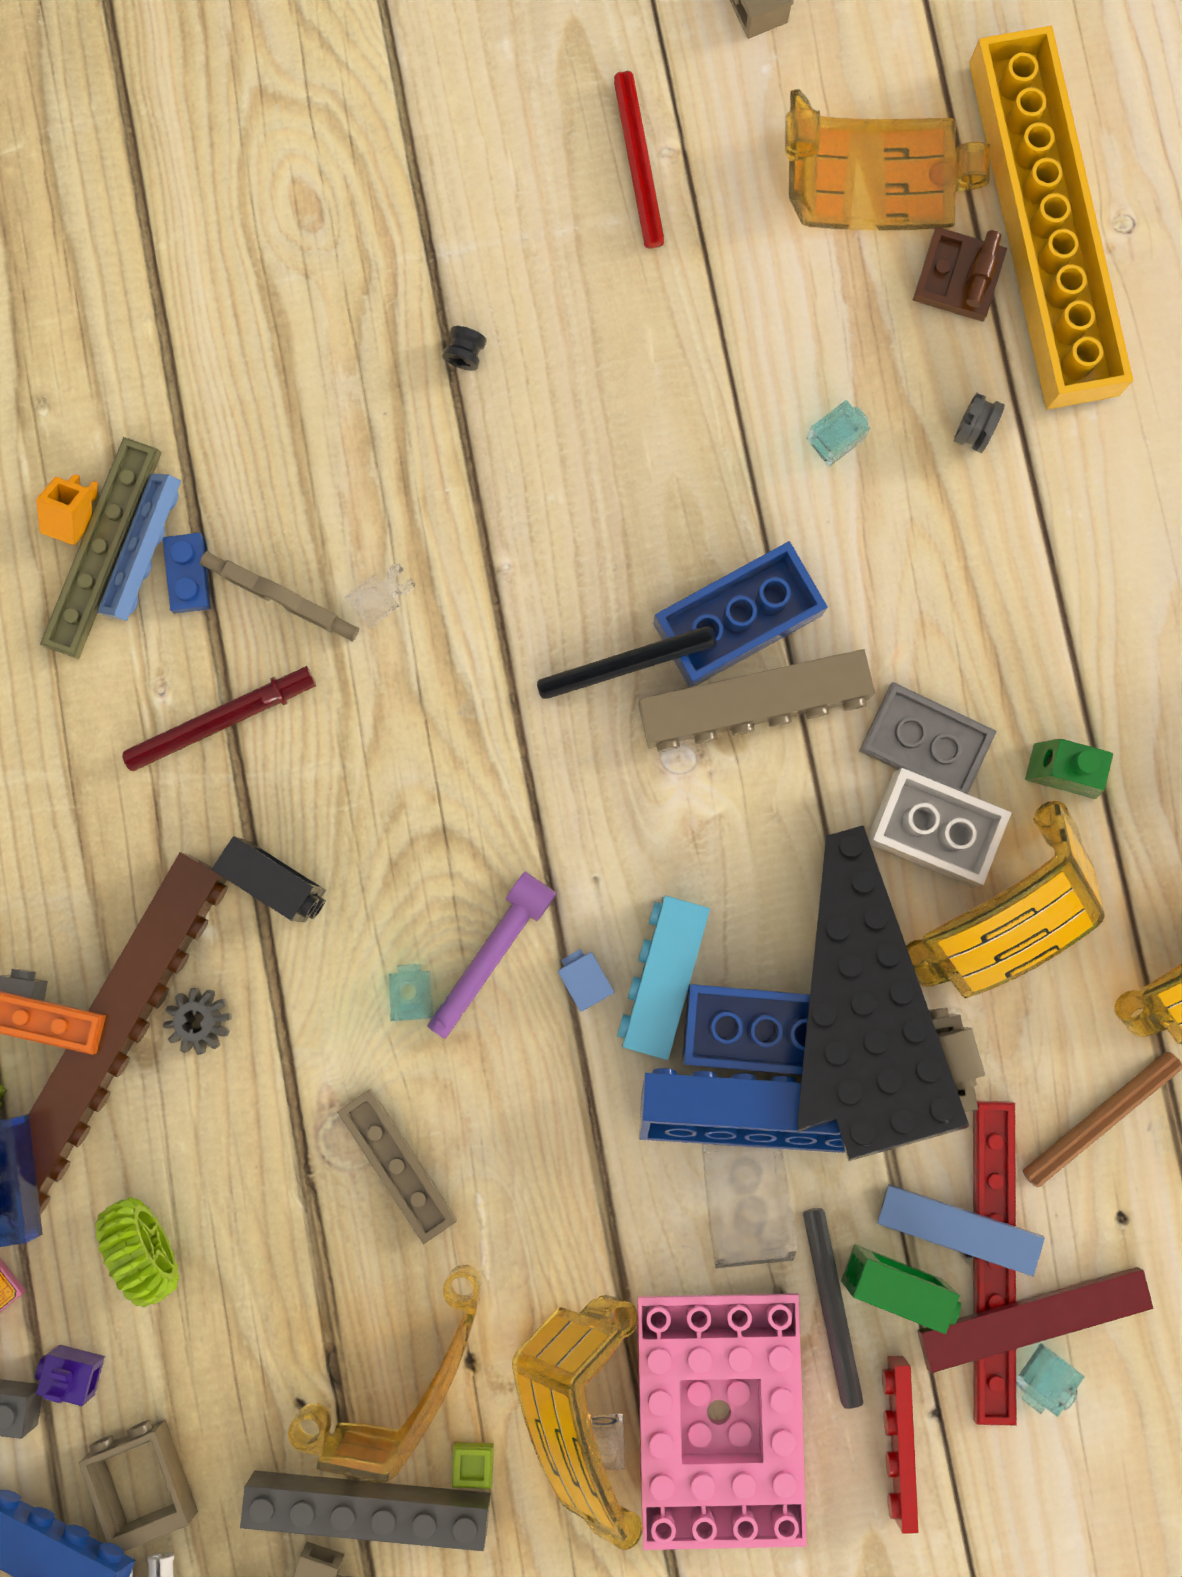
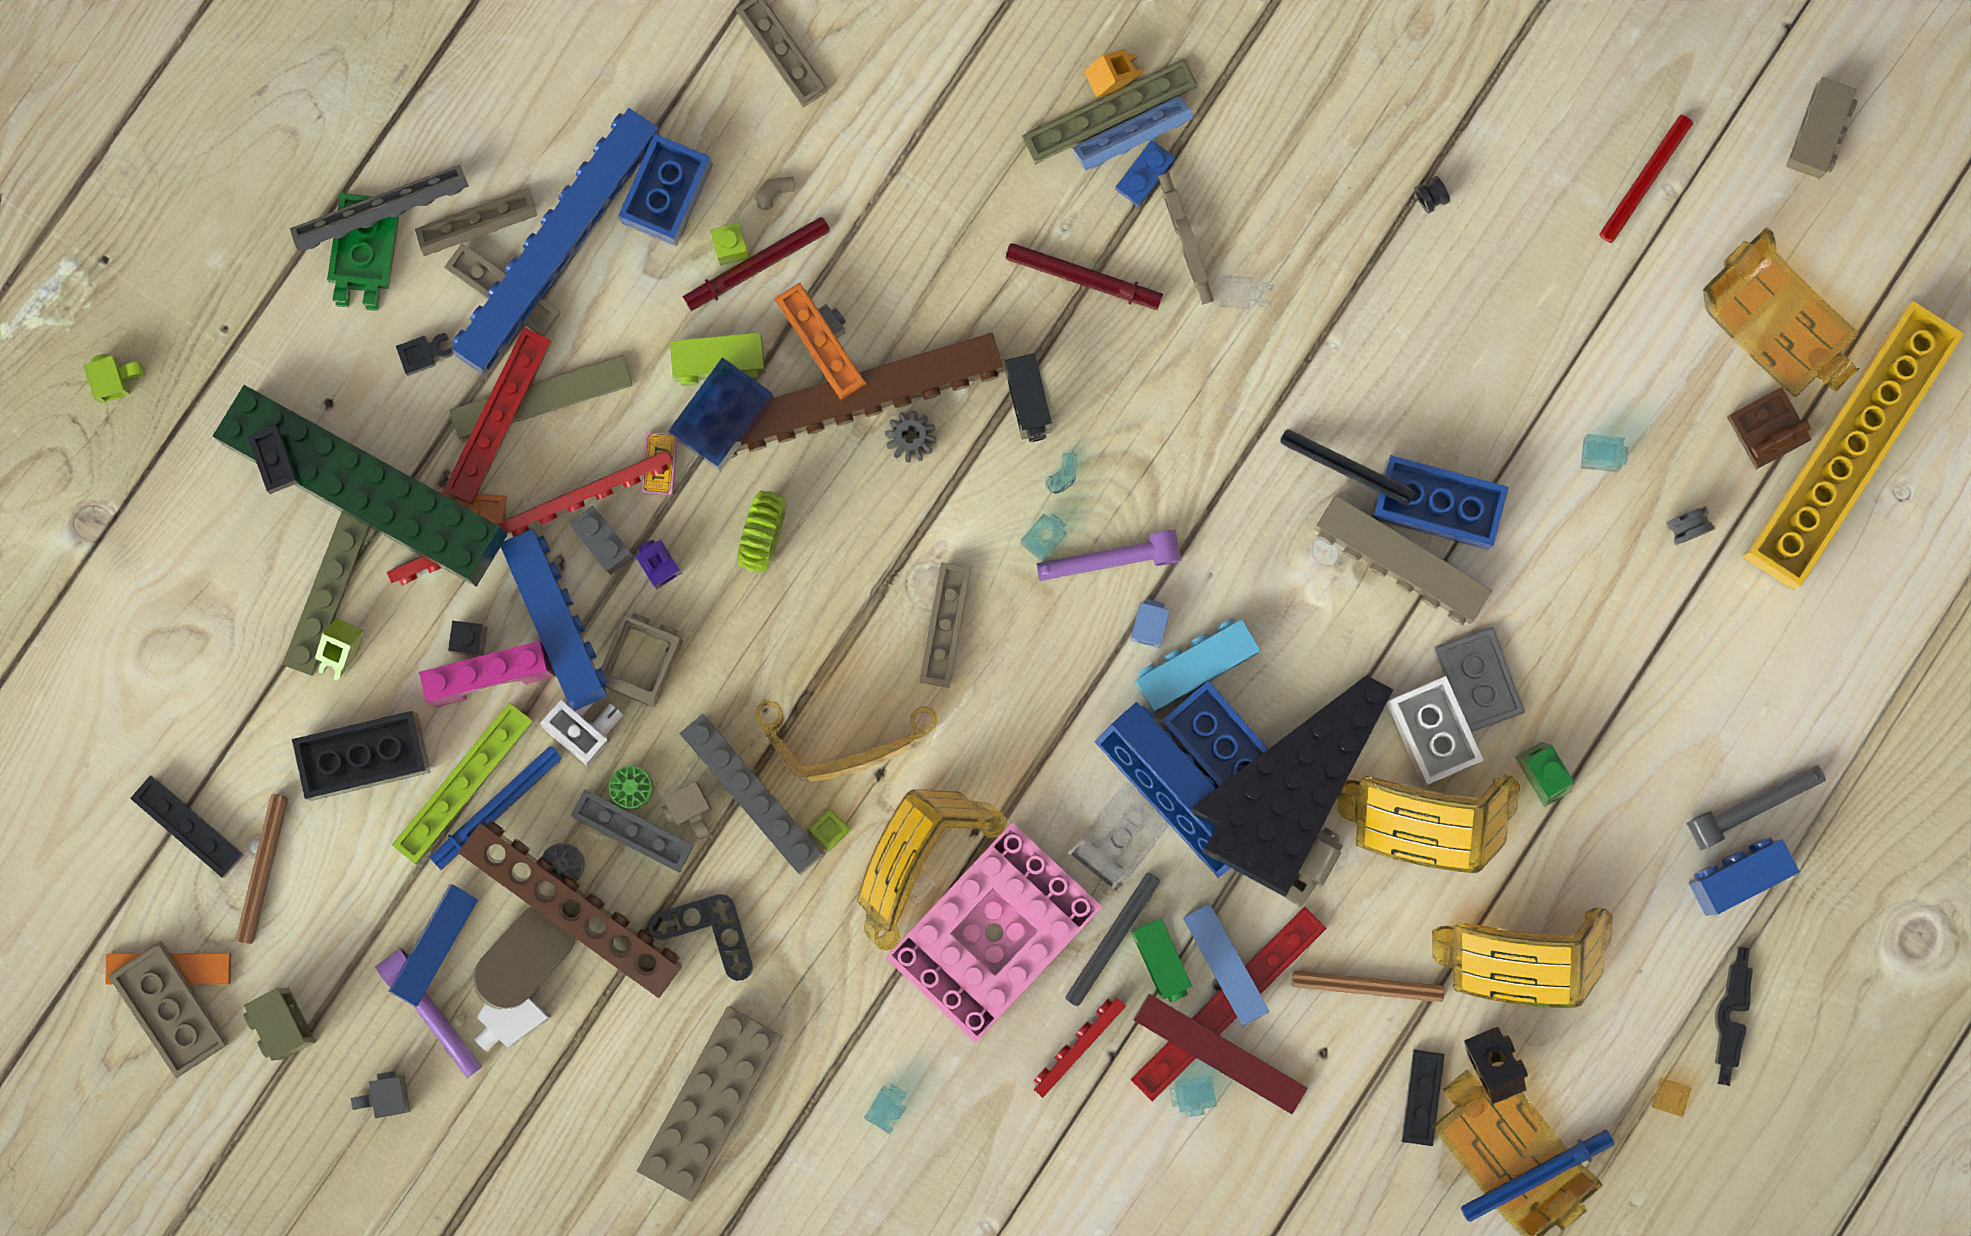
camera: 45 degrees right, 0 degrees up
(377, 920) = (1065, 477): none -> clear light blue arm

